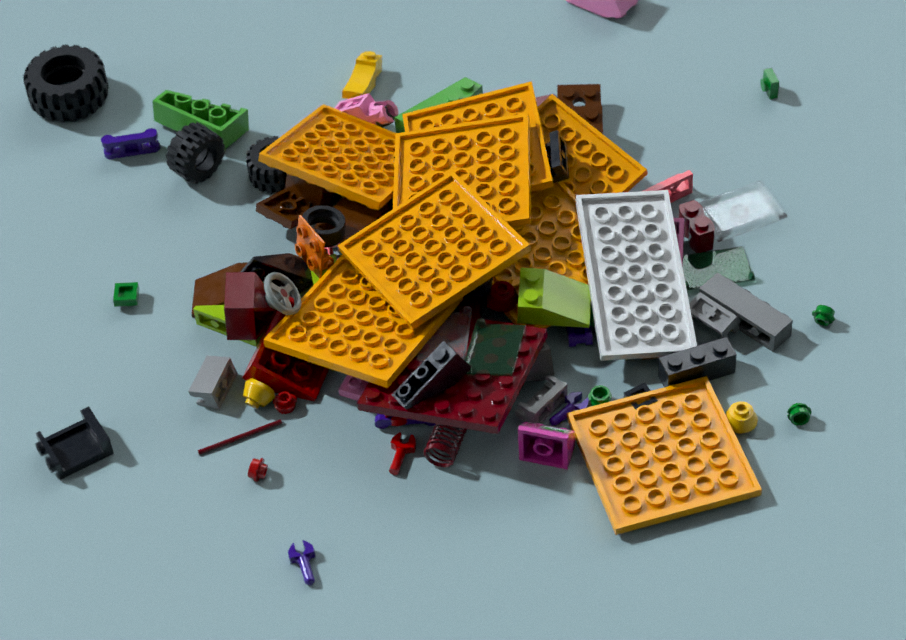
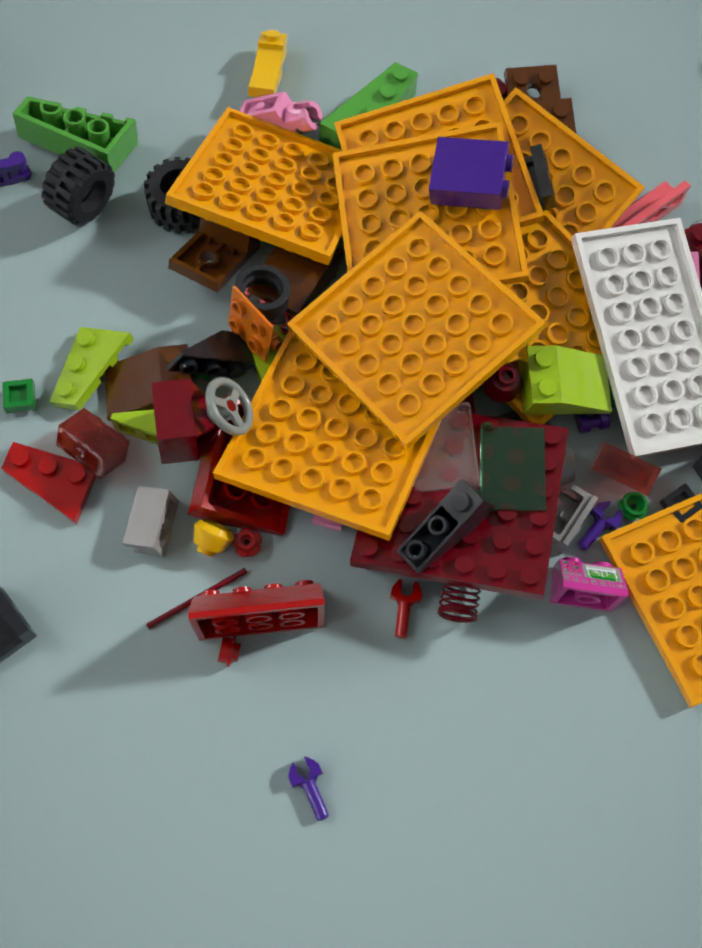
camera: 15 degrees left, 20 degrees up
(144, 351) = (52, 477): none -> red wing
(177, 326) = (92, 443): none -> clear red brick
(179, 277) = (87, 361): none -> lime wing
(283, 438) = (257, 611): none -> red slope
(494, 146) = (470, 173): none -> dark purple brick
(593, 366) = (624, 468): none -> clear red brick

